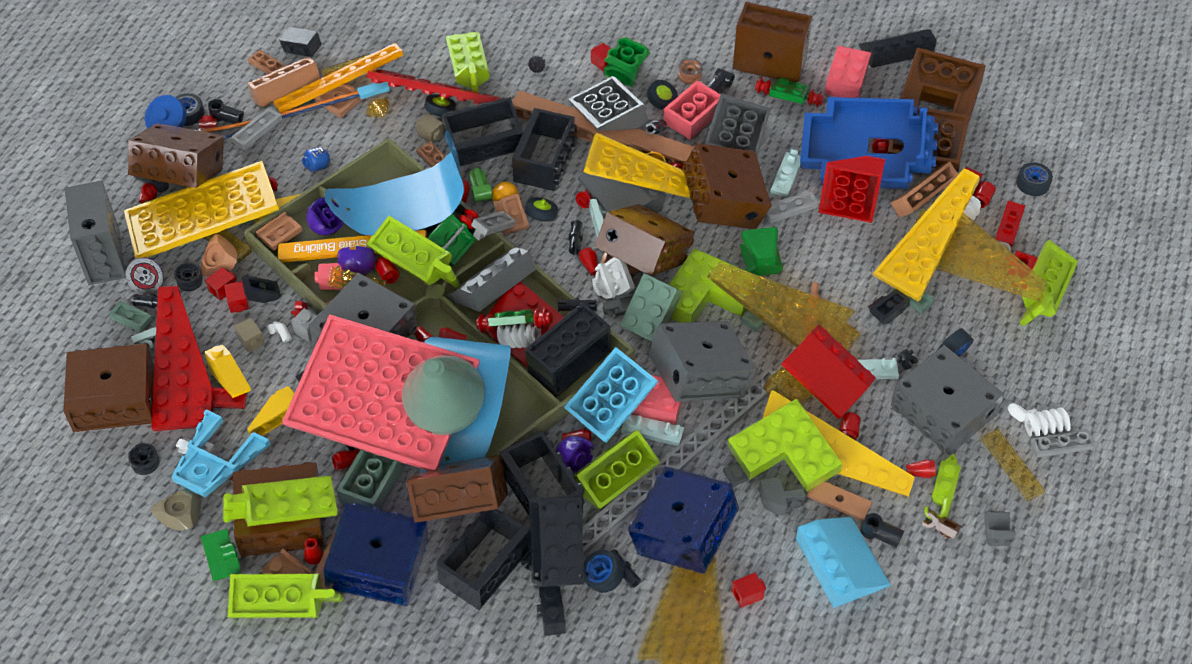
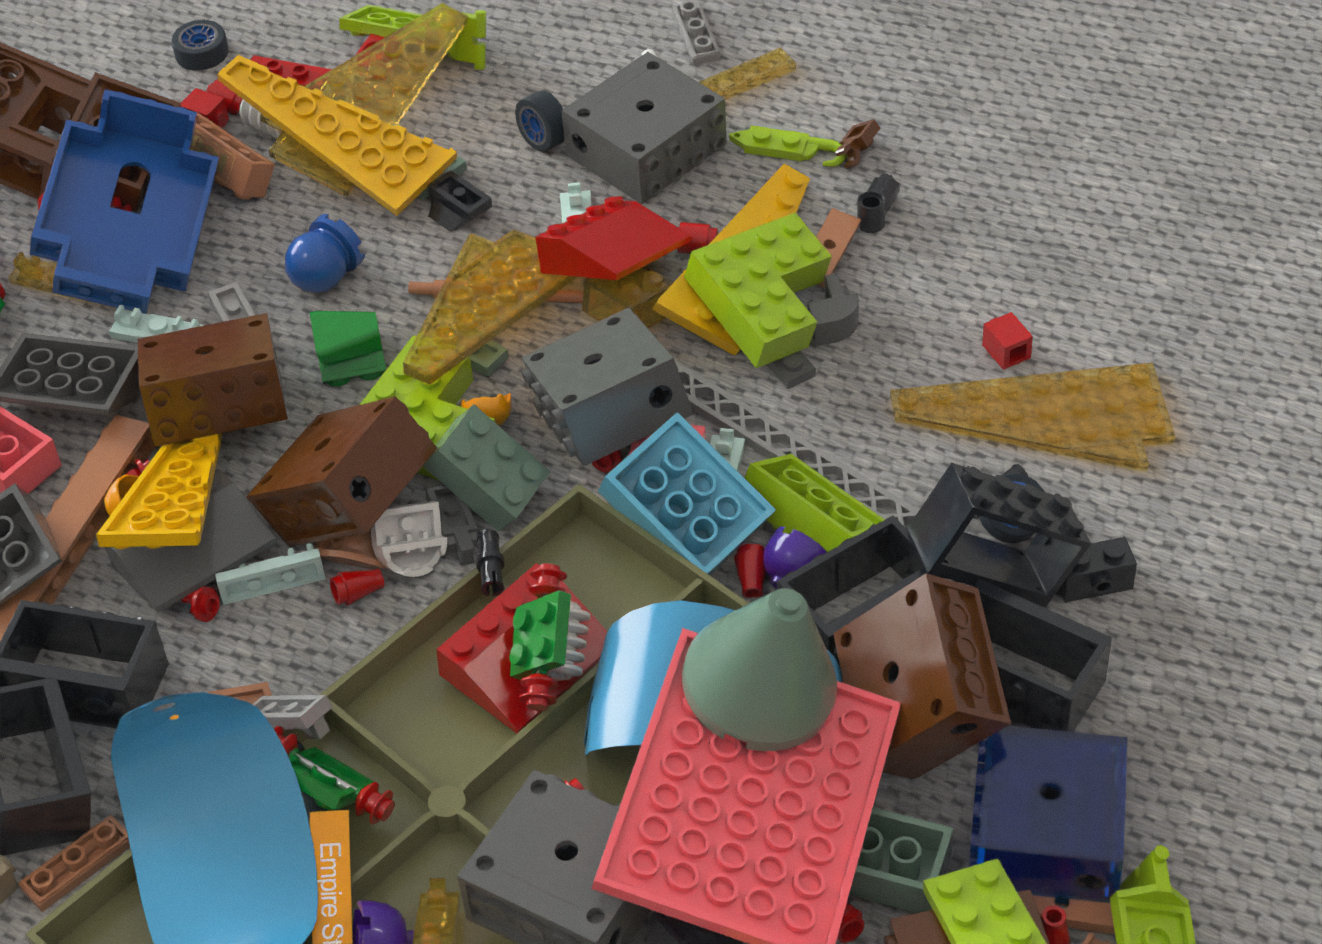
camera: 90 degrees left, 5 degrees down
(387, 270) = (393, 887): red brick -> none
(413, 252) = (372, 822): lime hinge -> none
(451, 334) = (556, 760): red cone -> none
(493, 280) = (427, 701): dark grey slope -> none
(541, 209) = (227, 665): black wheel -> none
(568, 349) = (605, 555): black hose -> none
(575, 237) = (295, 612): black pin -> none
(656, 127) = (47, 496): black pin -> none
(684, 519) = (912, 397): clear blue gear -> none
(706, 313) = (494, 407): none -> light orange hair
(830, 236) = (322, 255): none -> blue tile
(841, 559) = (935, 247): medium azure slope -> none
(852, 188) = (241, 201): red slope -> none
(906, 356) = (556, 181): black plate -> none
(922, 468) = (761, 161): red cone -> none
(998, 528) = (857, 89): dark grey brick -> none
(1046, 421) = (669, 37): white piece -> none

